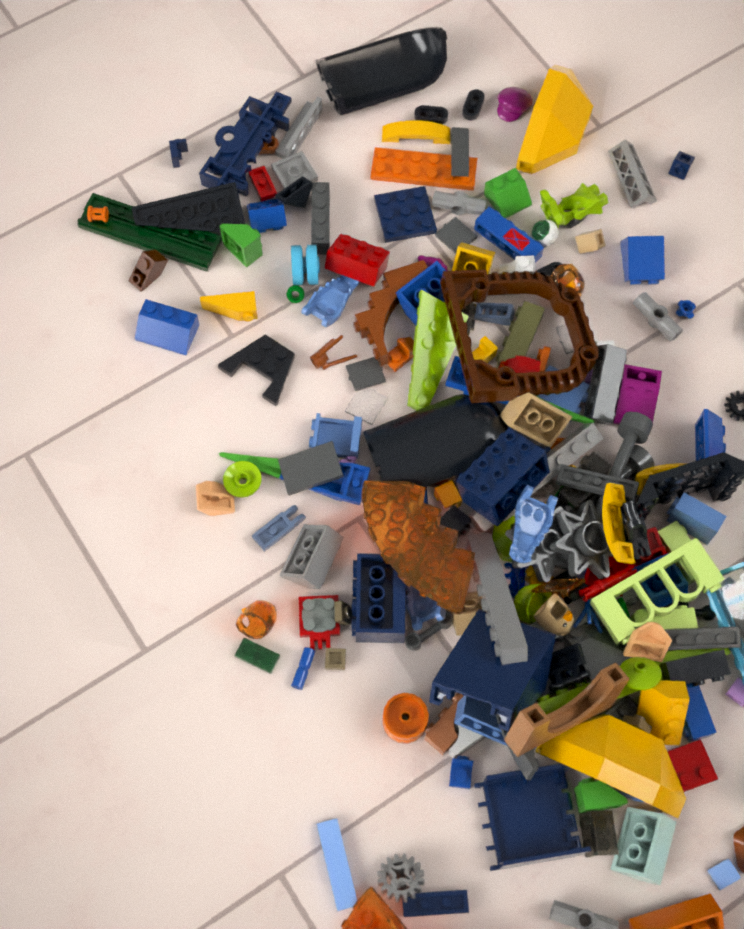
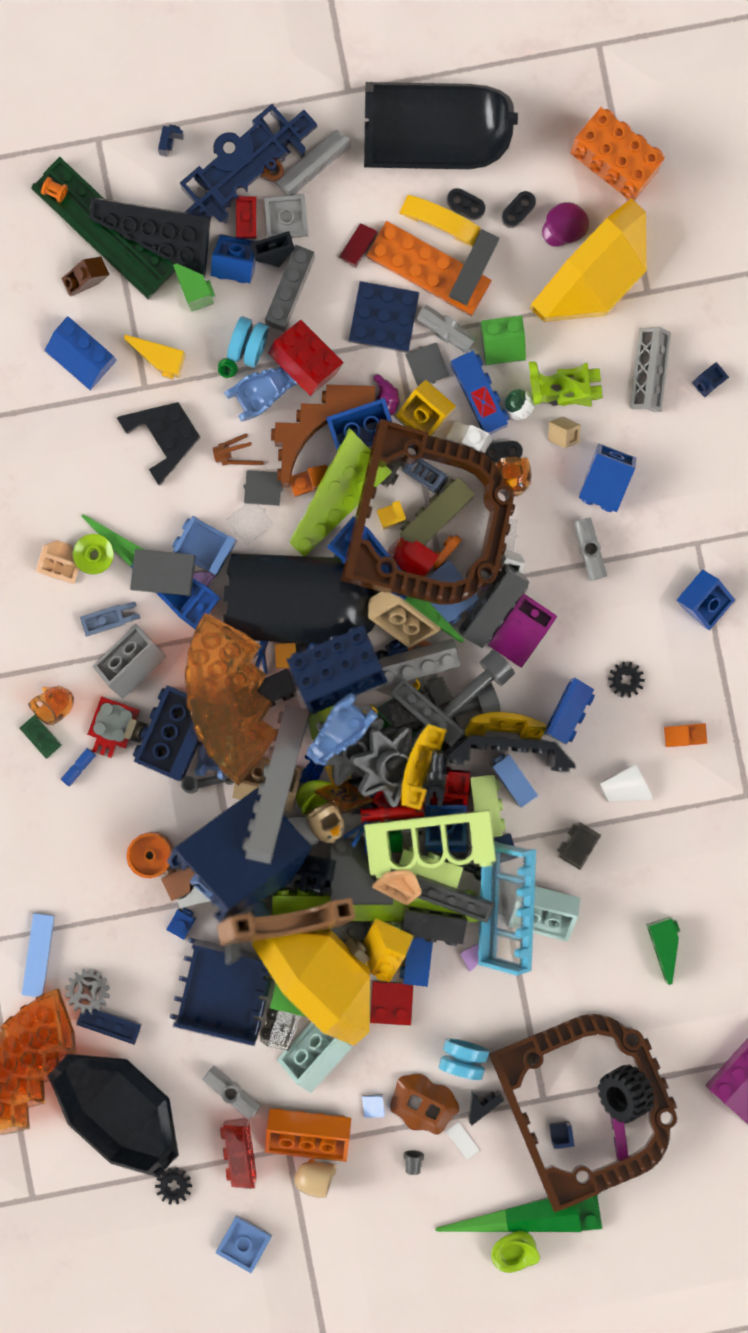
camera: 20 degrees right, 20 degrees up
(335, 658) = (111, 771): dark tan plate -> none
(360, 172) = (358, 245): none -> dark red slope
(529, 38) = (617, 154): none -> orange brick
(642, 673) = (376, 919): lime dish -> none
(686, 304) = (625, 545): blue plate -> none

